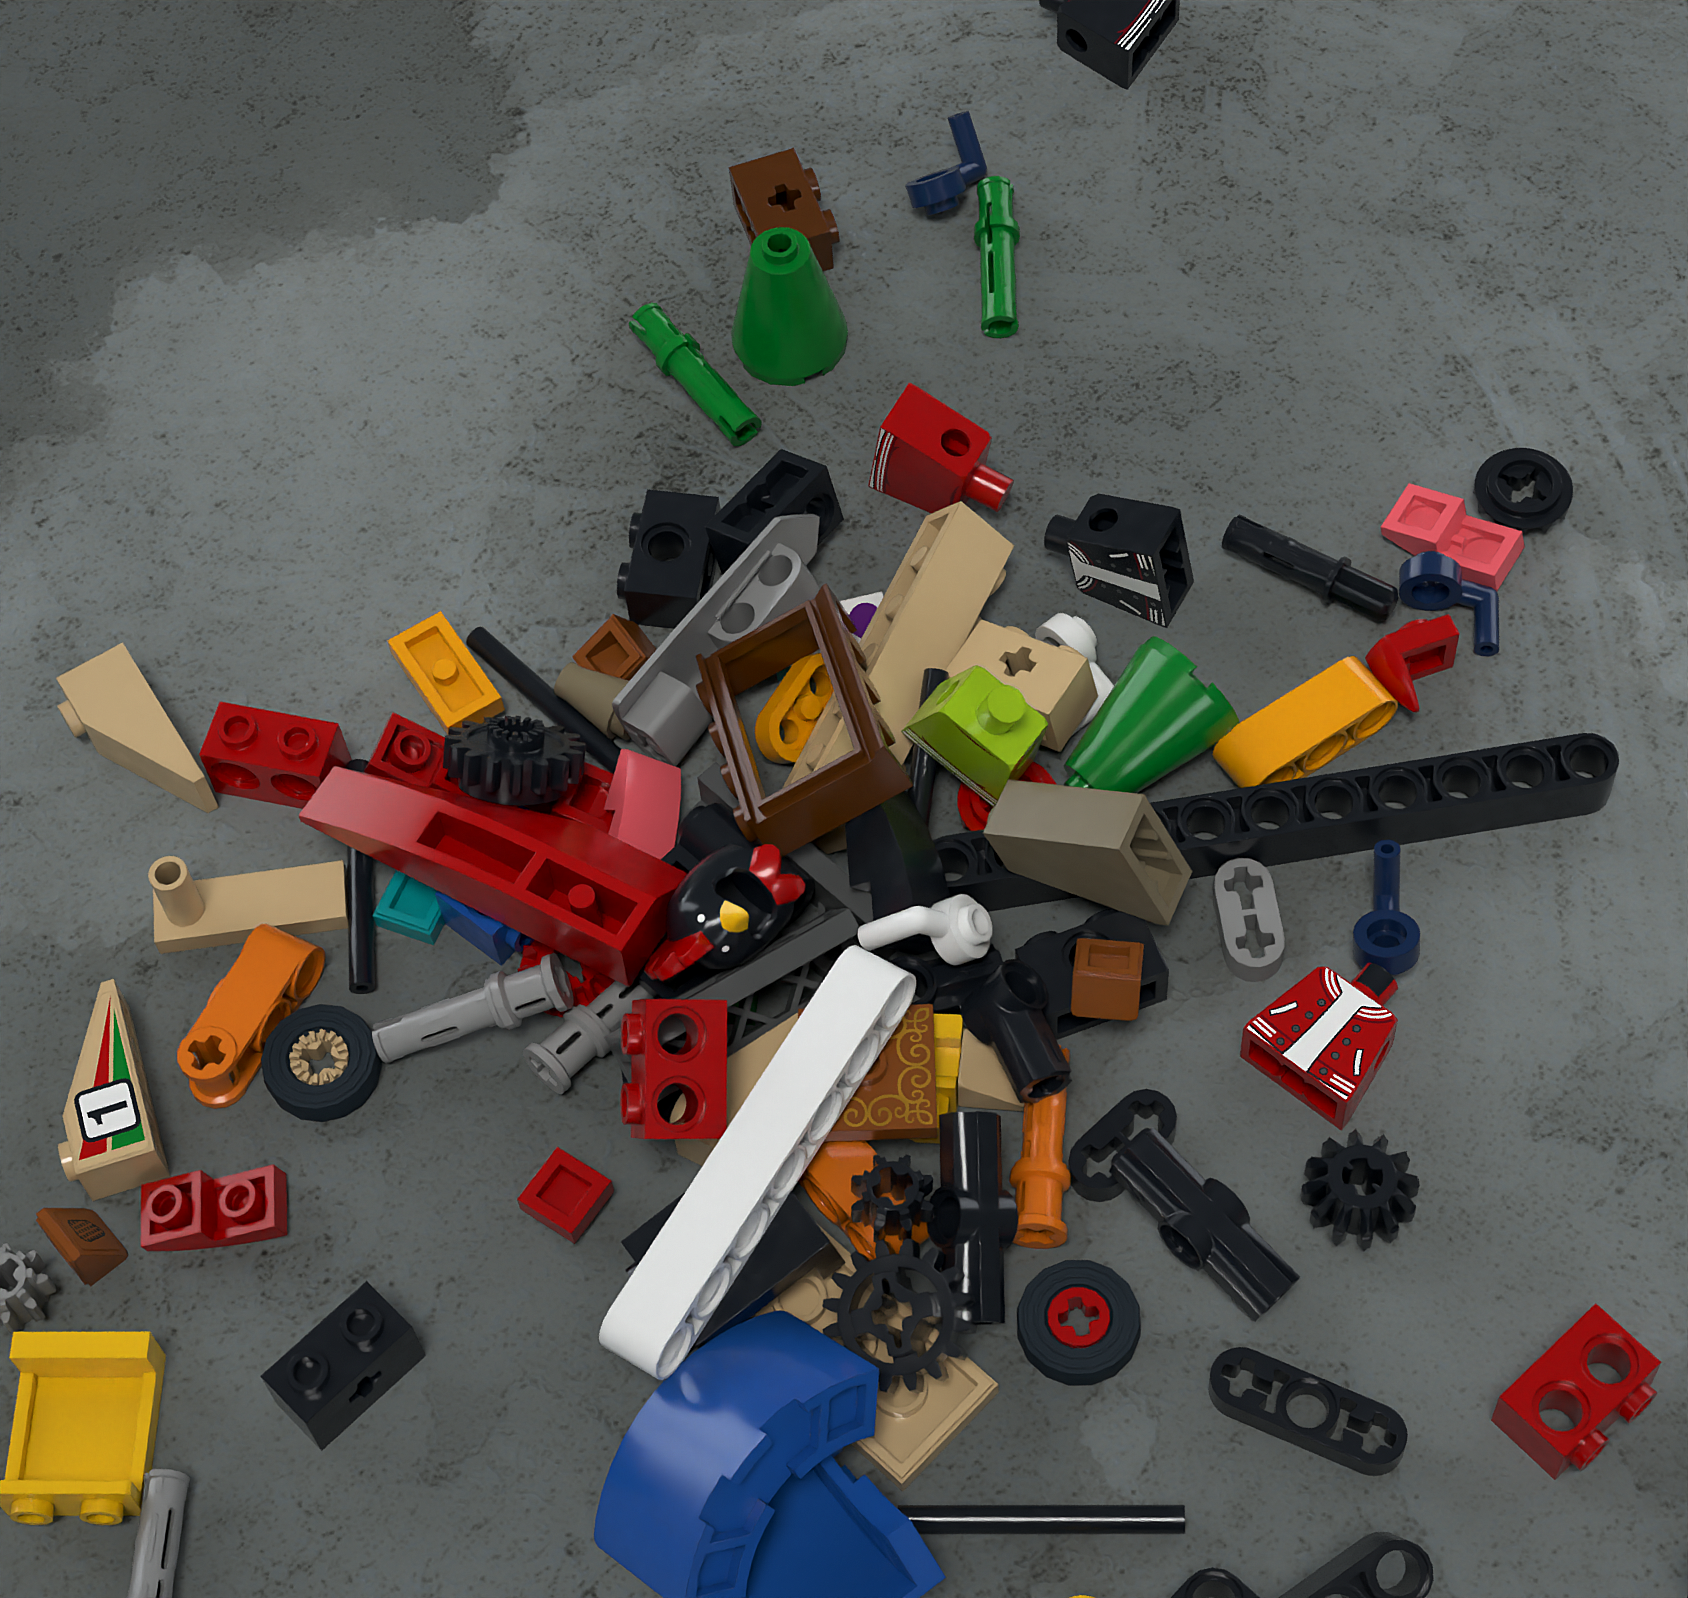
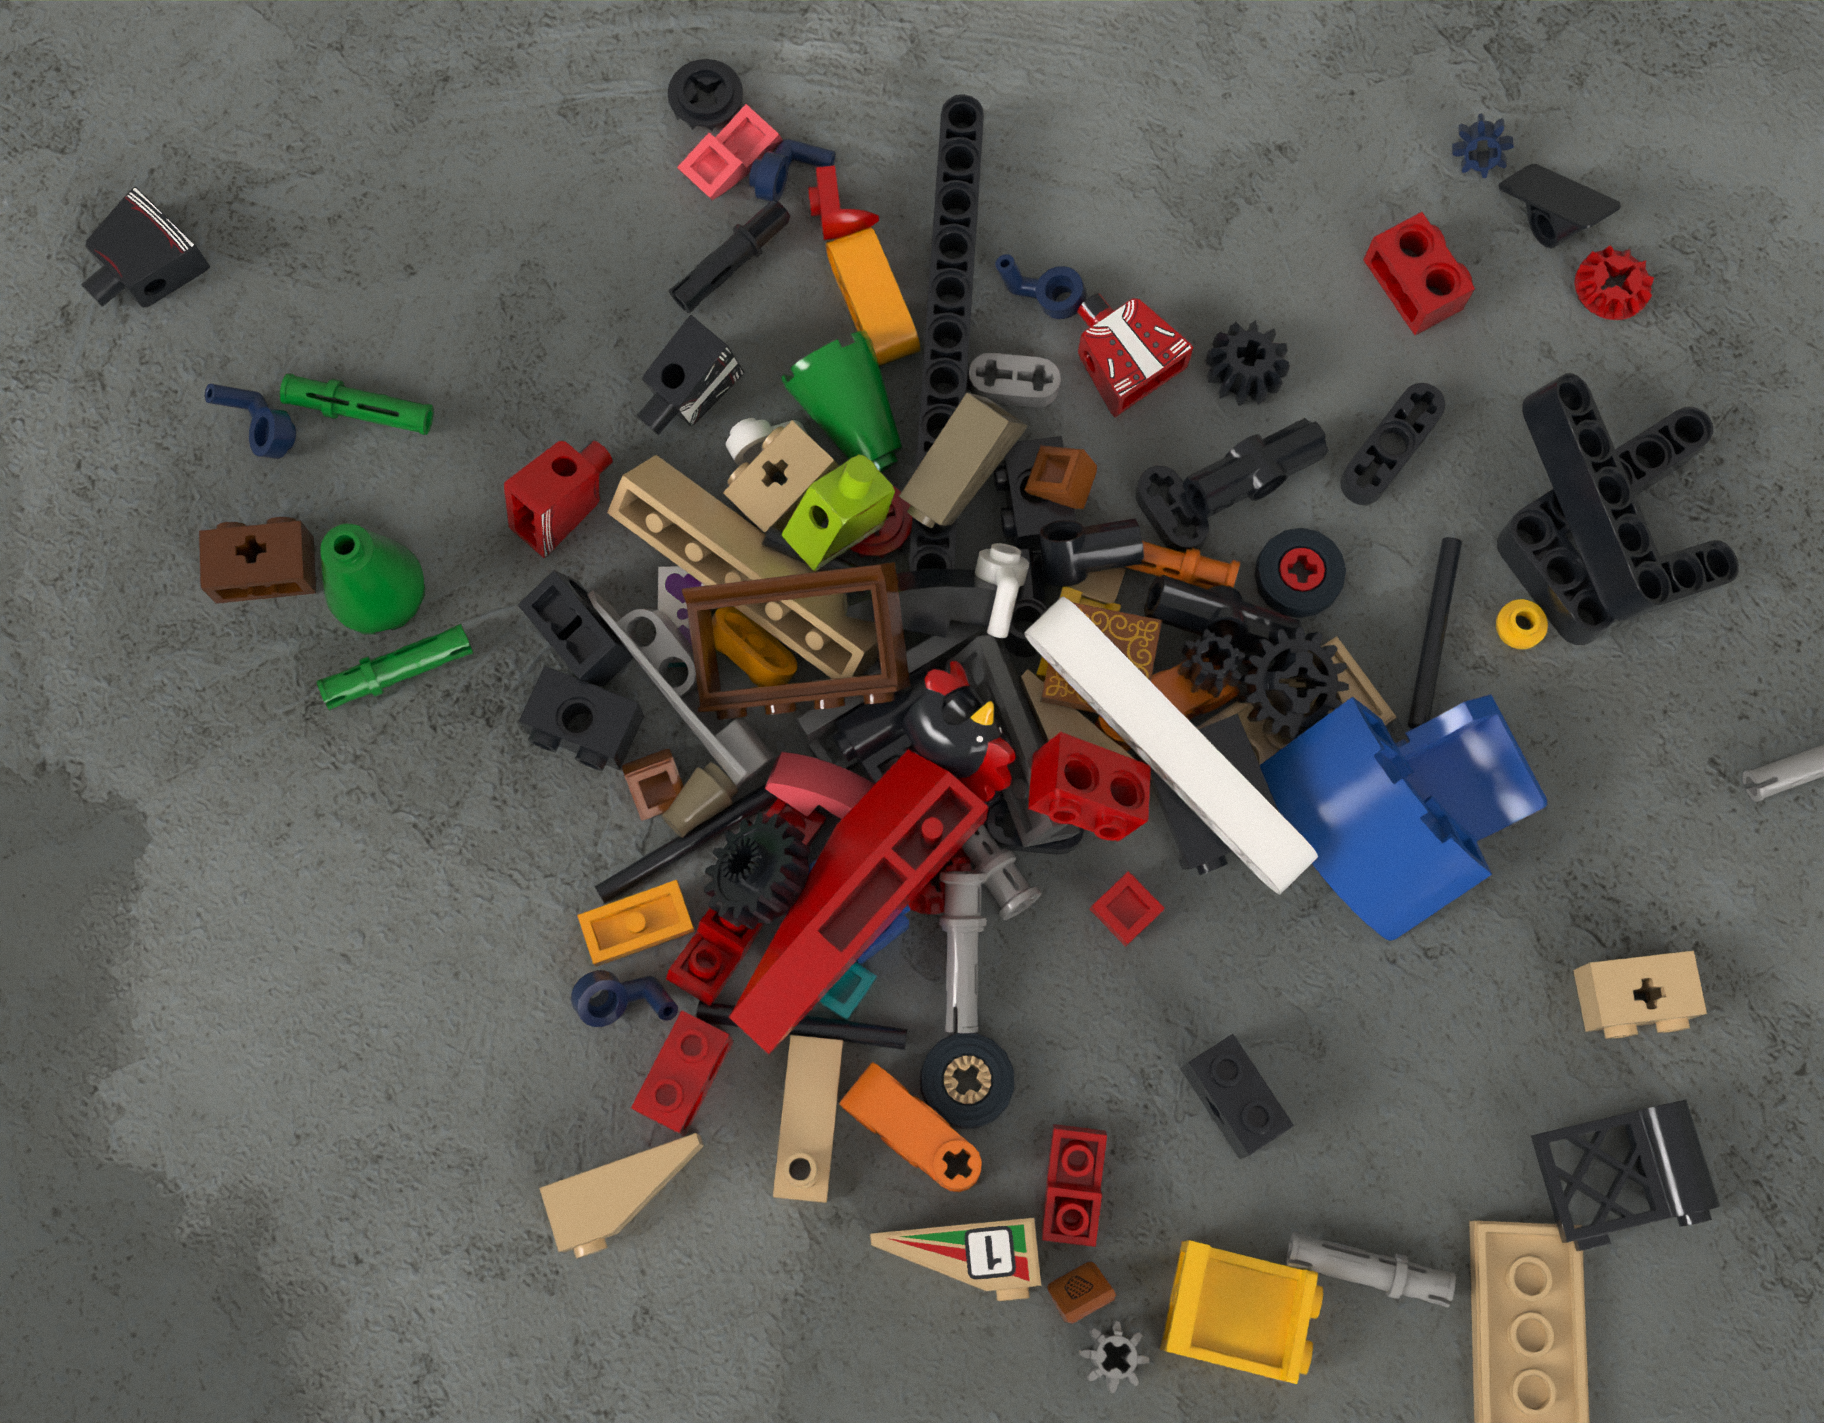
camera: 85 degrees left, 15 degrees up
(344, 673) = (615, 996): none -> dark blue plate

